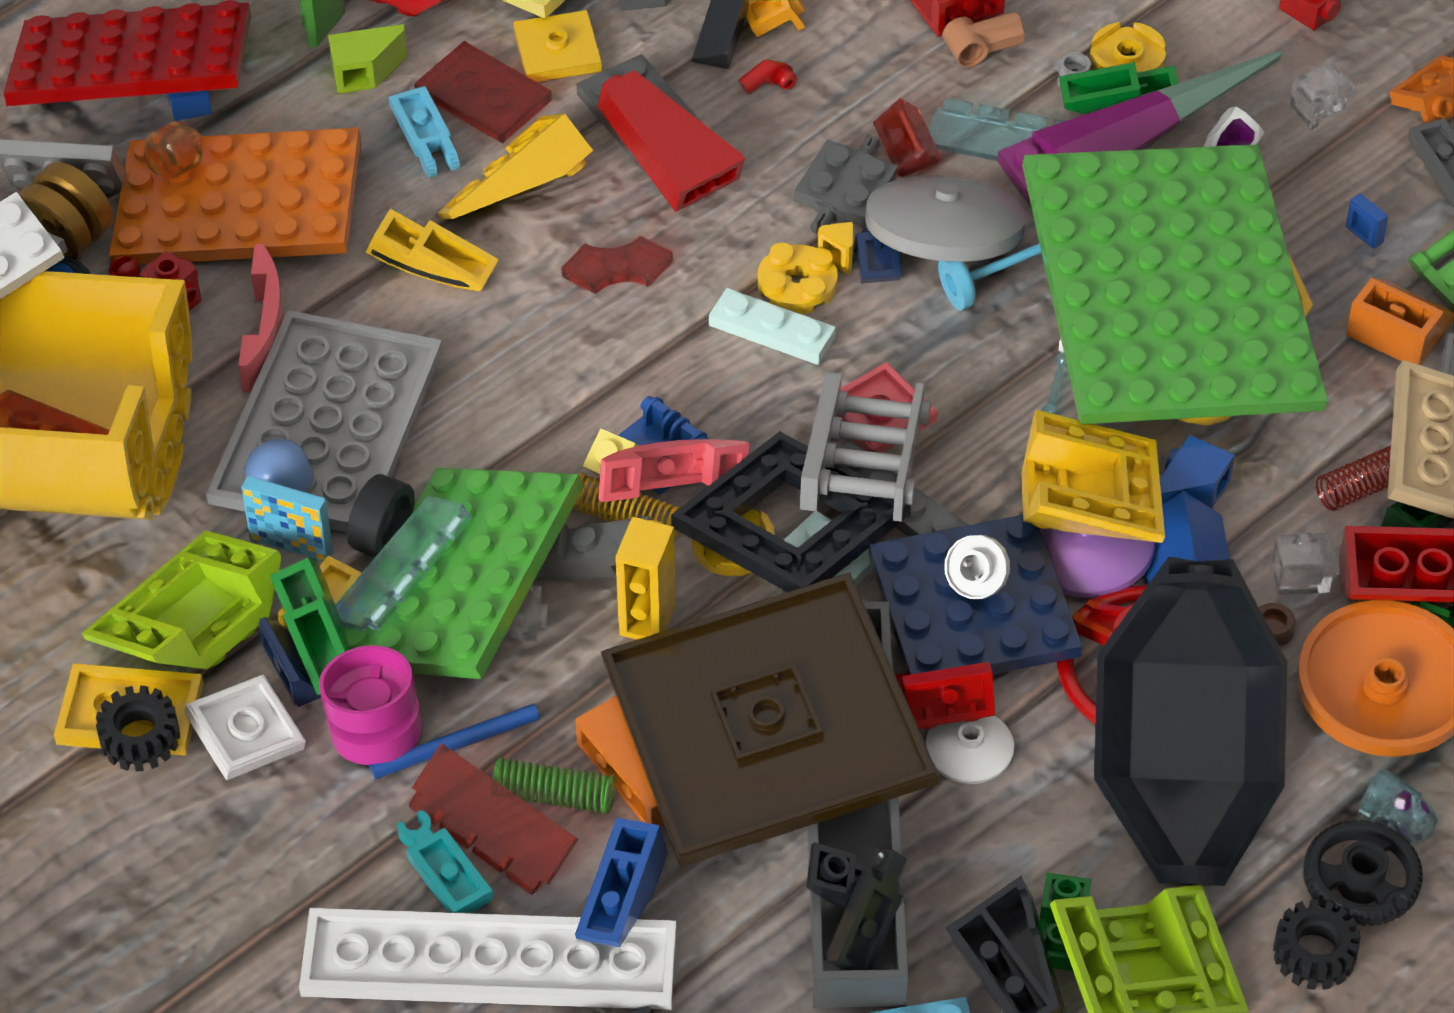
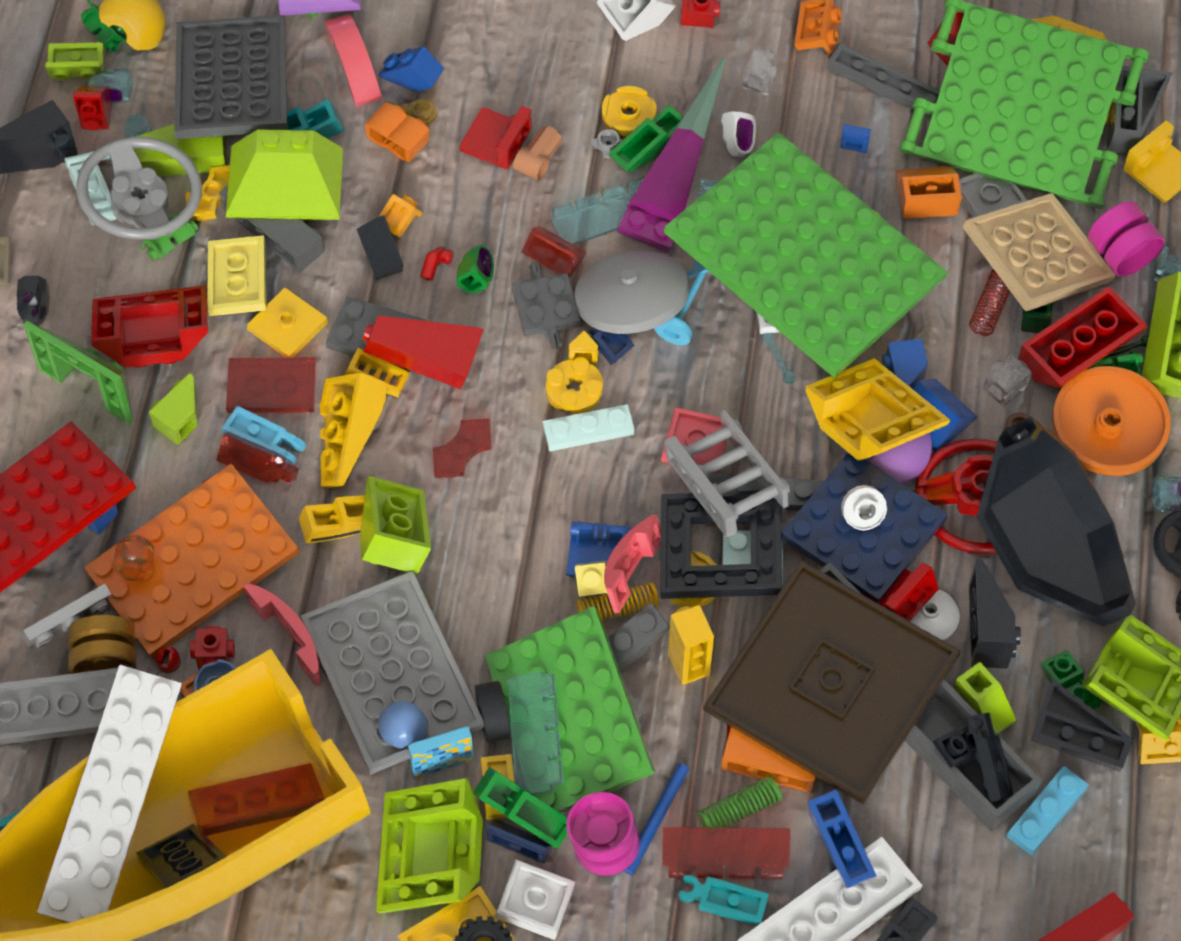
camera: 40 degrees left, 10 degrees up
(393, 146) = (255, 459): none -> clear red hinge
(463, 283) = (394, 526): none -> lime slope
(593, 118) = (380, 366): none -> yellow slope
(800, 104) = (475, 270): none -> green rock
(935, 863) = (985, 695): none -> lime slope
(1012, 785) = (992, 621): none -> black slope

